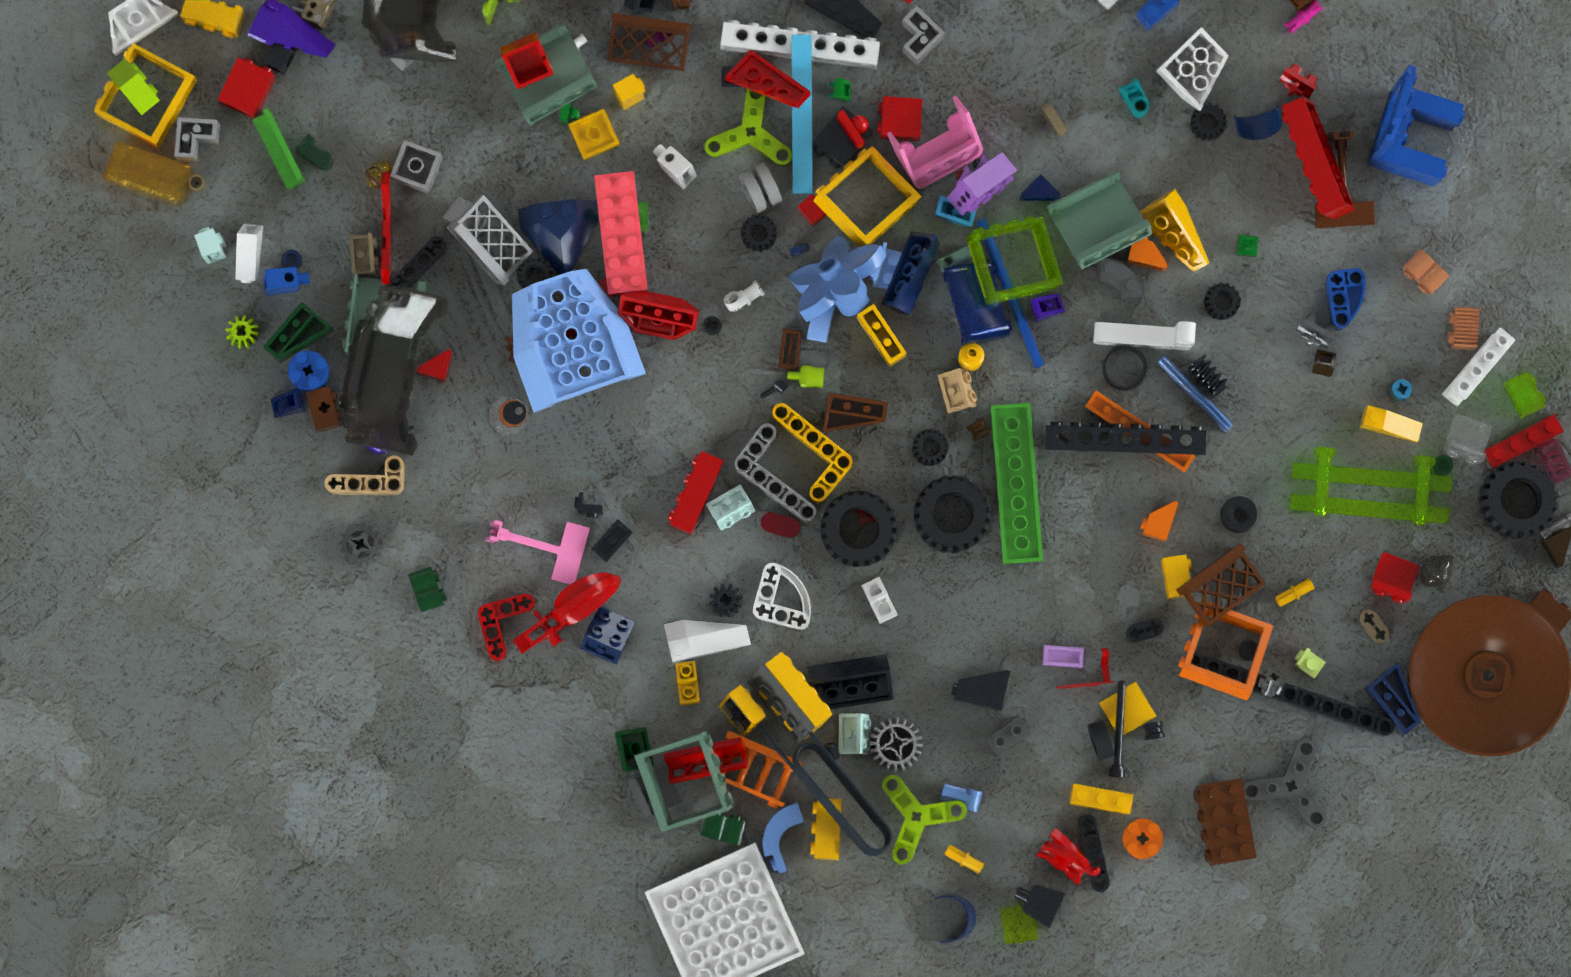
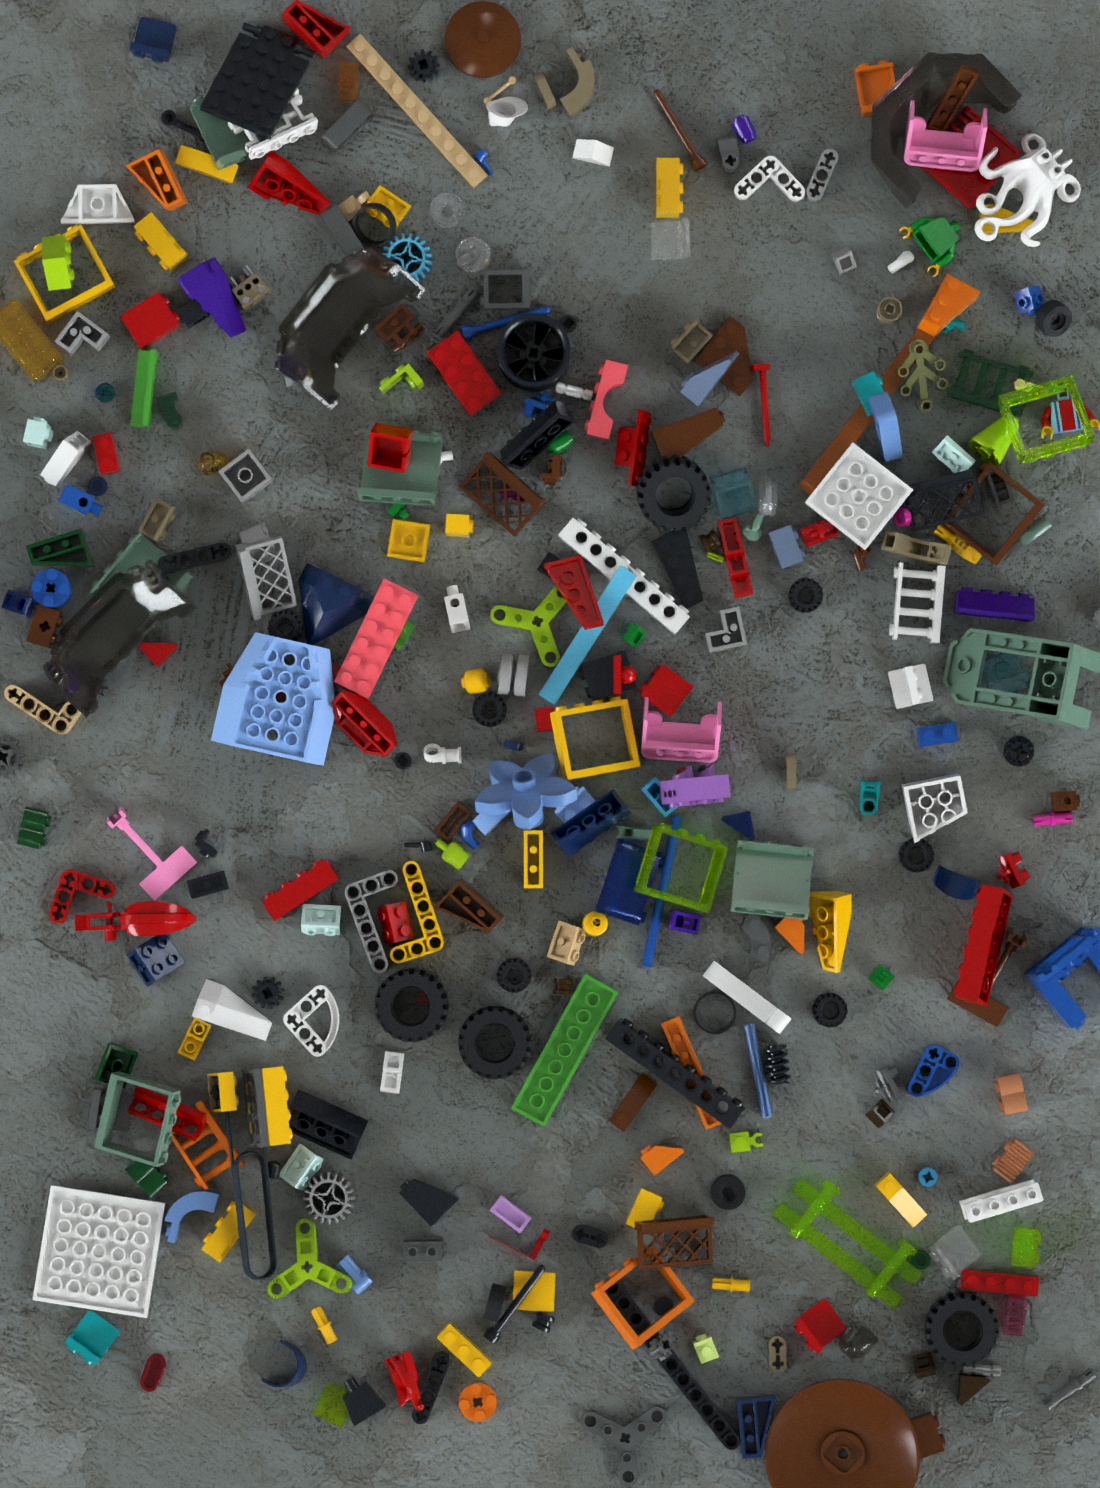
camera: 35 degrees right, 5 degrees up
(246, 175) = (105, 393): none -> tile
(249, 329) = (24, 523): lime gear -> none
(282, 225) = (106, 454): none -> red brick
(386, 228) = (189, 511): red tile -> none
(508, 415) = (190, 728): tile -> none
(731, 215) = (476, 681): none -> yellow head
(780, 525) = (351, 959): dark red tile -> none
(797, 468) = (395, 922): none -> red bracket
(809, 352) = (466, 834): none -> blue arm
(1105, 491) = (632, 1102): none -> reddish brown slope
(1222, 463) = (741, 1141): none -> lime plate
(1224, 822) = (551, 1432): reddish brown bracket -> none
(1506, 554) = (923, 1365): none -> dark brown slope

